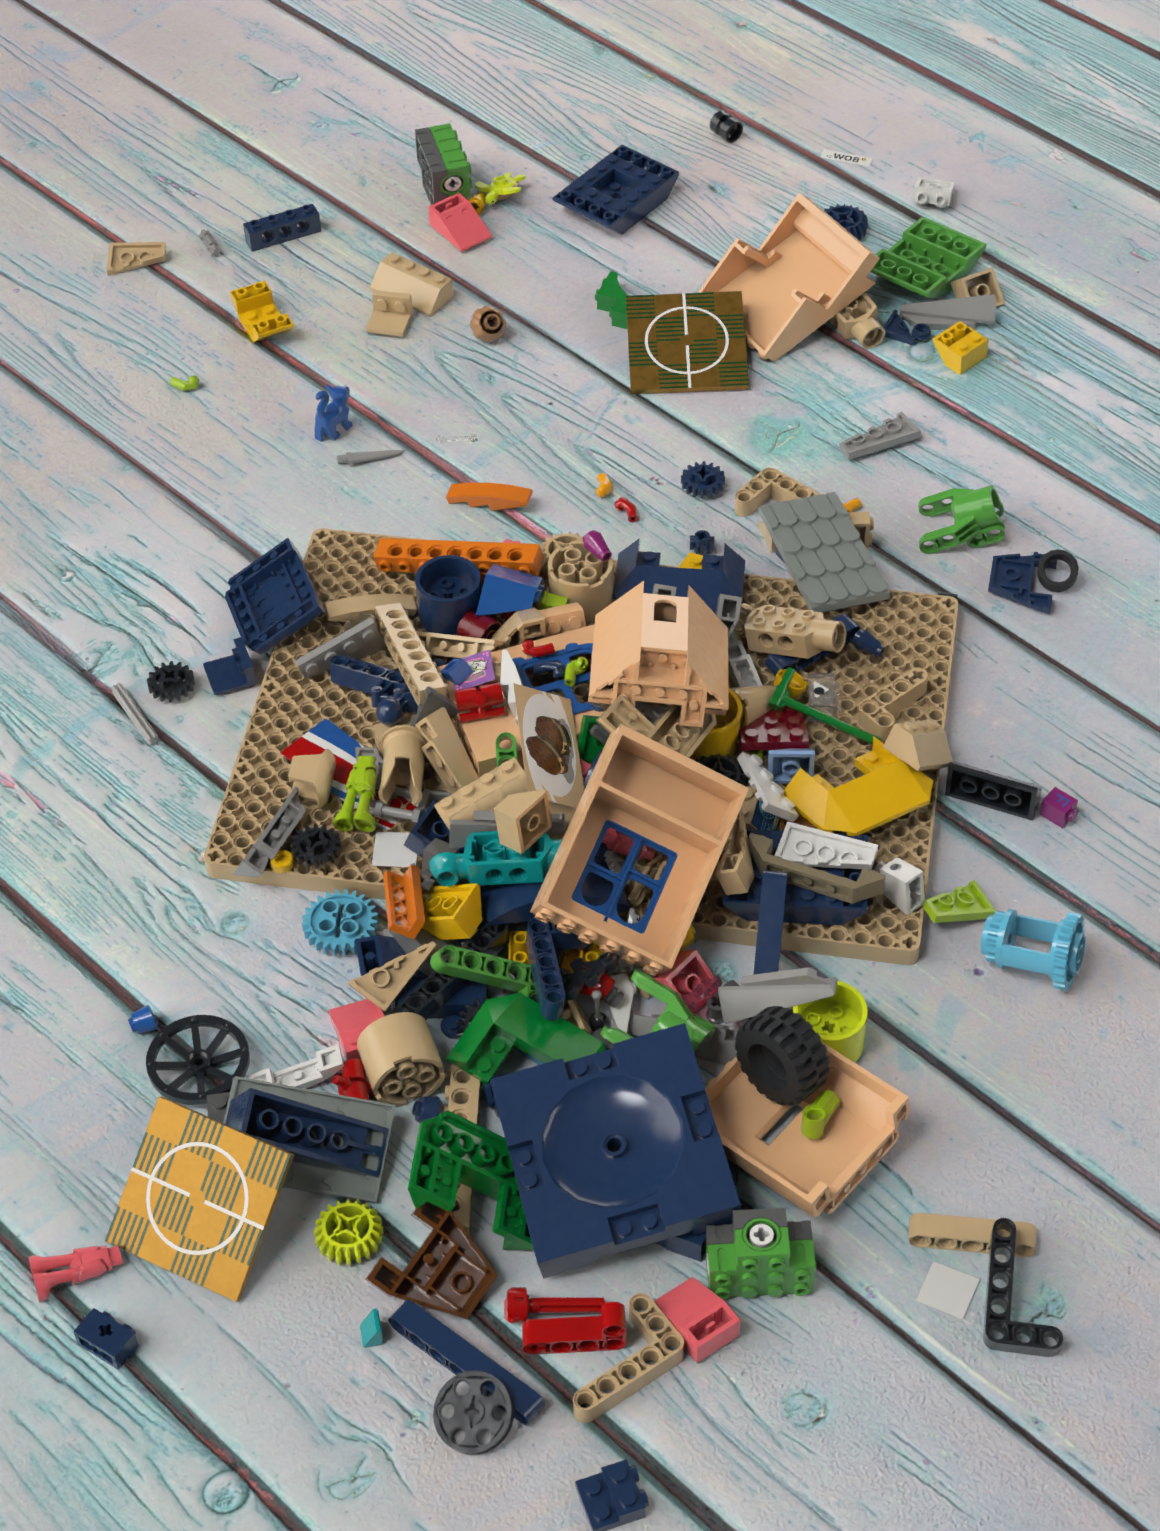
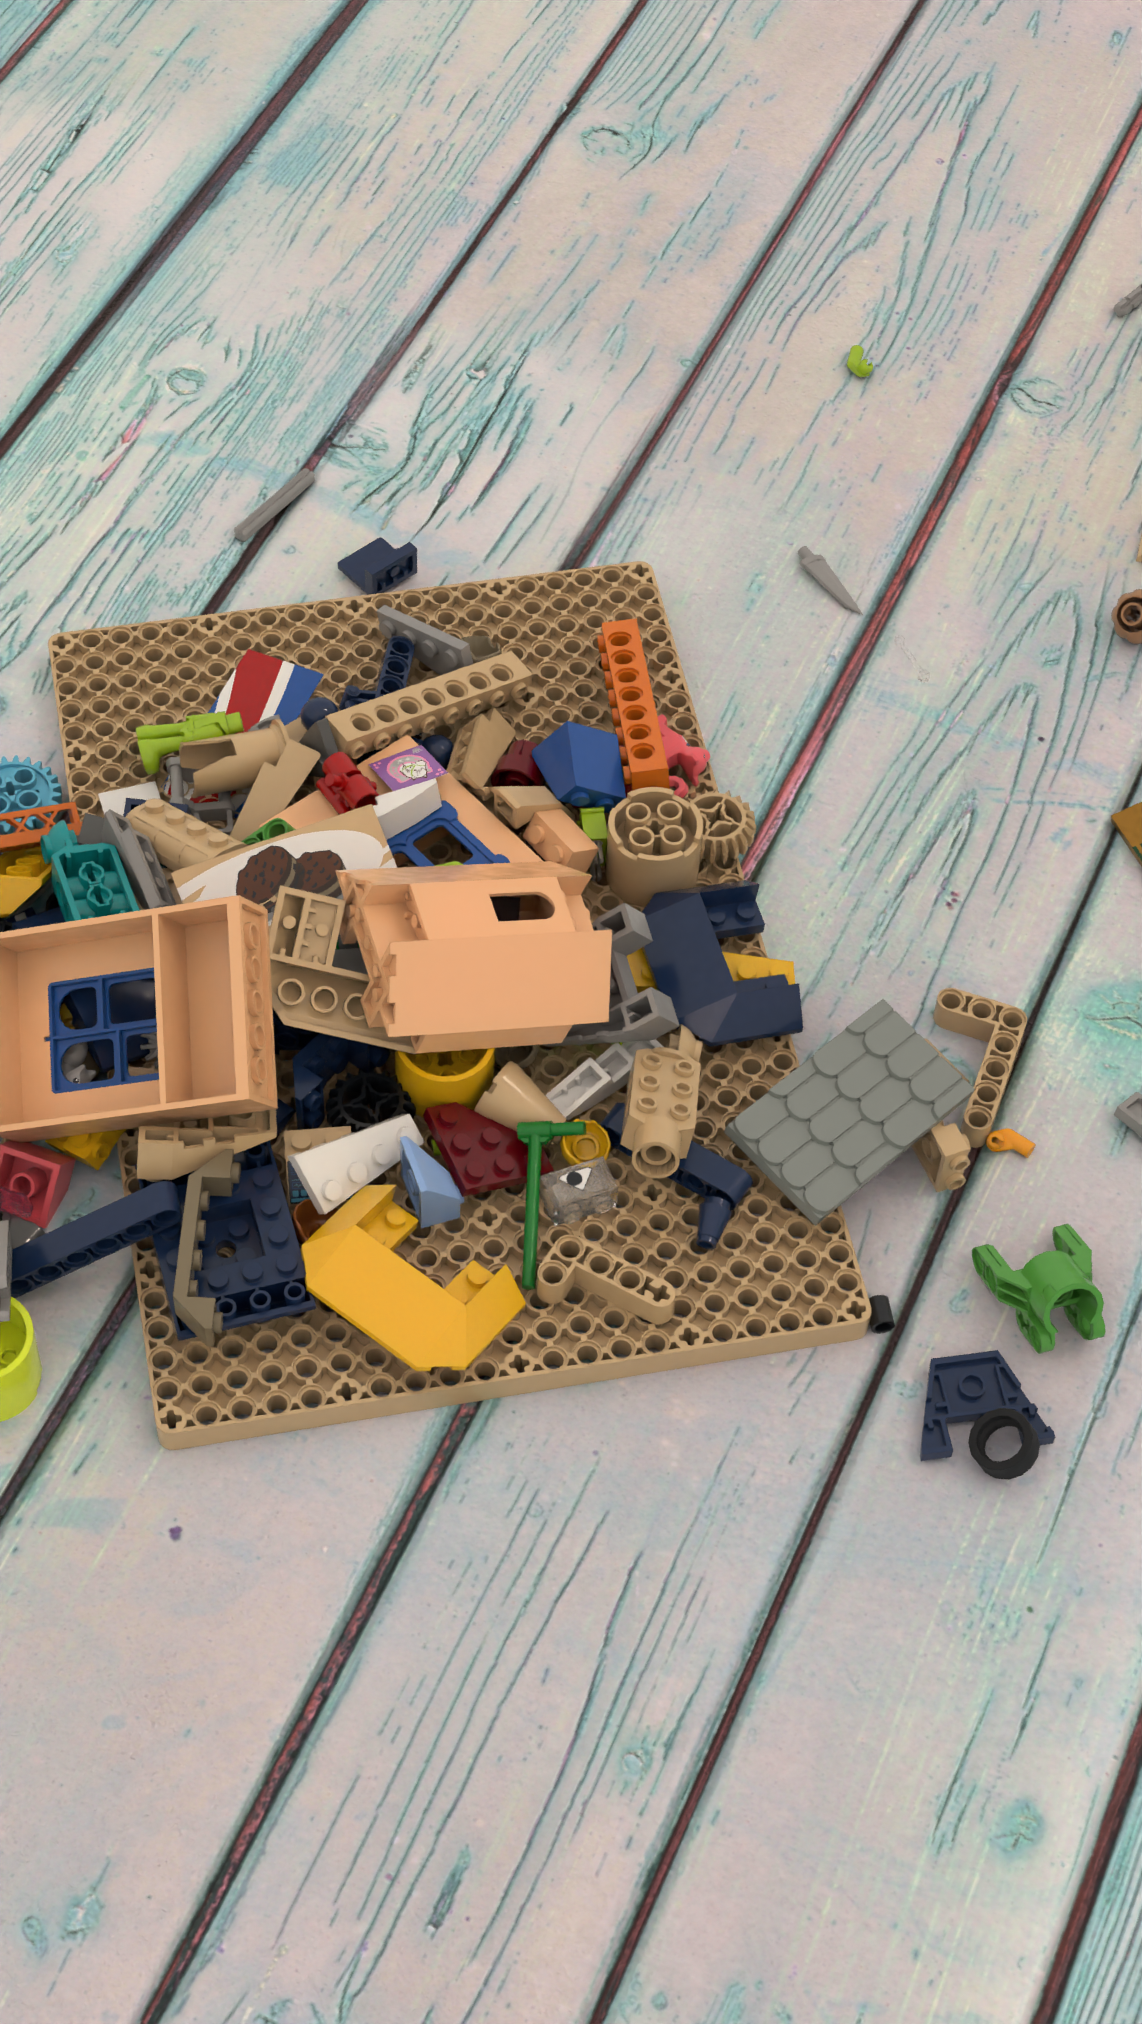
camera: 65 degrees right, 5 degrees up
(134, 255) = (1061, 237): tan wing -> none
(171, 681) = (335, 517): black gear -> none
(258, 312) = (1027, 388): yellow slope -> none
(272, 837) = (104, 680): light grey wedge -> none
(273, 598) = (502, 558): dark blue slope -> none
(282, 861) = (70, 705): yellow tile -> none
(313, 776) = (202, 686): tan piece -> none
(316, 846) = (98, 726): black gear -> none
(333, 413) = (863, 510): blue animal -> none
(351, 607) = (508, 632): tan slope -> none
(390, 313) = (1101, 516): tan bracket -> none
(446, 591) = (557, 694): dark blue brick -> none
(456, 671) = (398, 752): blue slope -> none
(492, 494) = (813, 721): orange slope -> none
(522, 819) = (116, 874): tan slope -> none
(539, 651) = (471, 822): red arm -> none
(549, 666) = (448, 844): dark blue arm -> none
(596, 545) = (687, 826): magenta cone -> none
(605, 485) = (902, 843): light orange arm -> none
(624, 503) = (875, 882): red arm -> none
(702, 542) = (842, 981): dark blue gear -> none
(703, 480) = (970, 948): dark blue gear -> none
(824, 849) = (251, 1248): white wing -> none
(903, 884) = (251, 1374): white torso -> none
(919, 744) = (510, 1327): tan slope -> none
(960, 905) = (270, 1471): lime wing -> none
(992, 790) = (513, 1460): black slope -> none
(1059, 807) = (513, 1560): magenta brick -> none
(1066, 949) = (207, 1614): medium azure piece -> none

